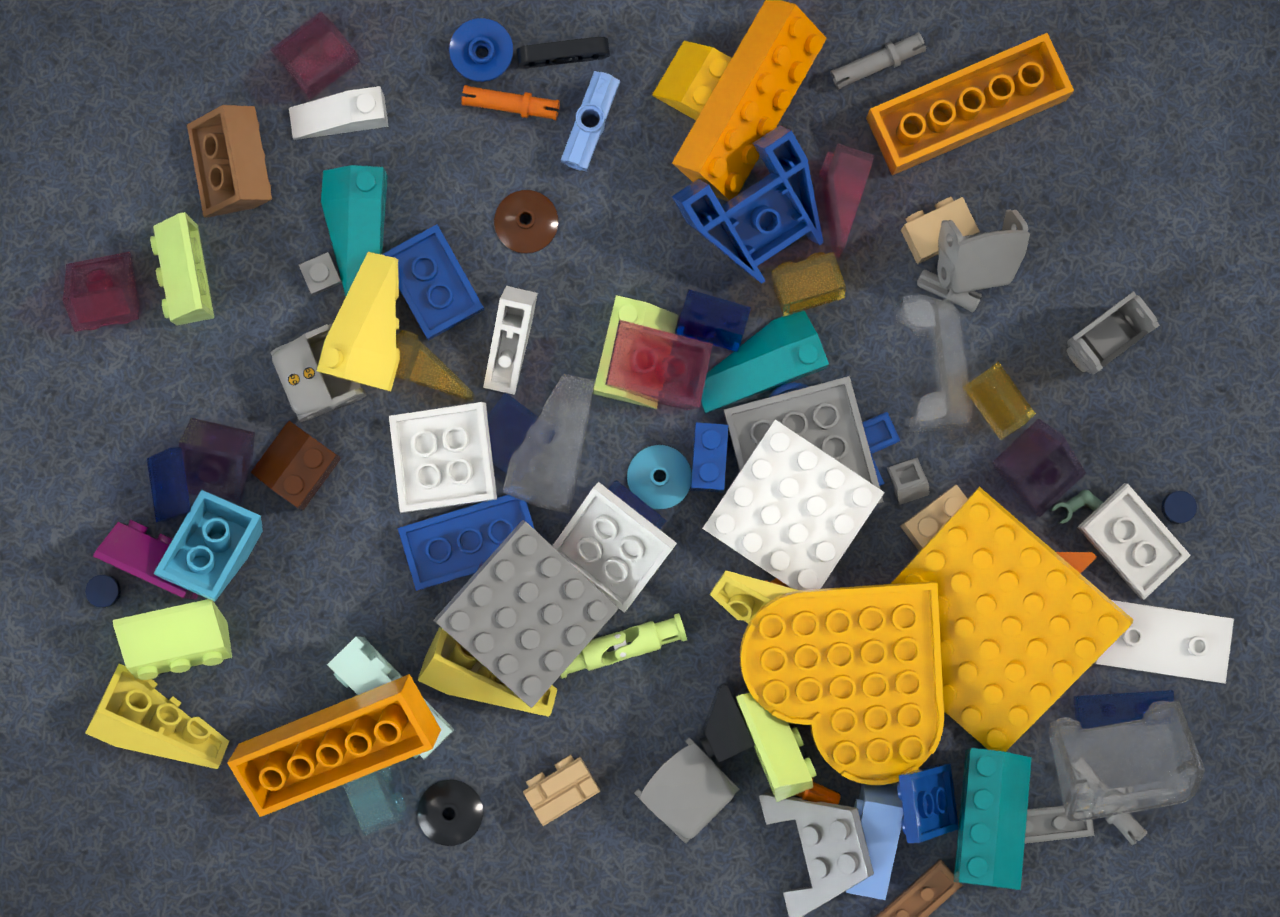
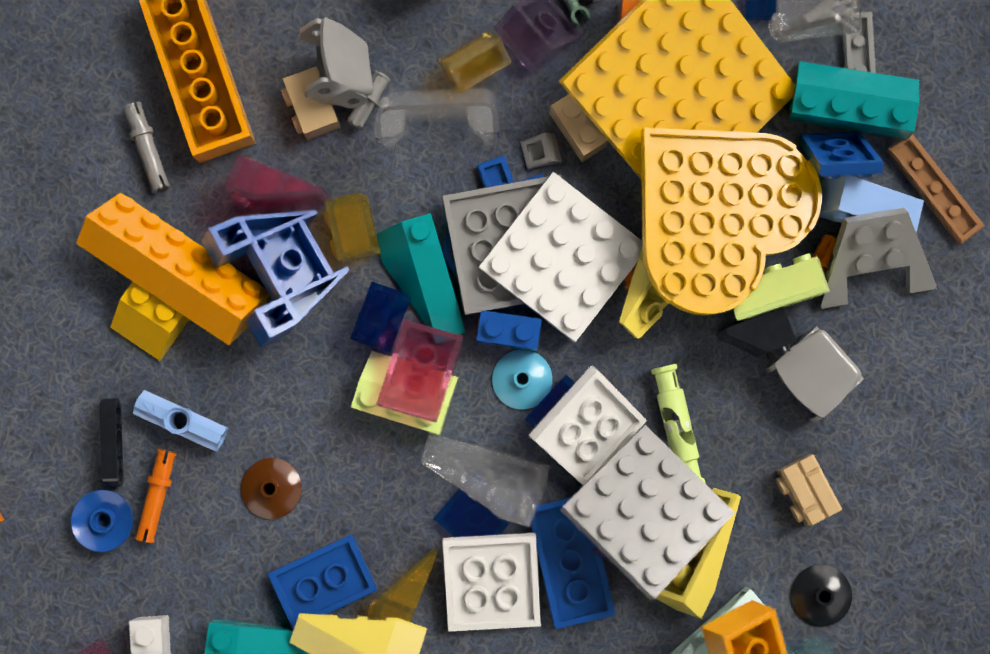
camera: 85 degrees left, 0 degrees up
(510, 339) = (383, 510): white slope -> none

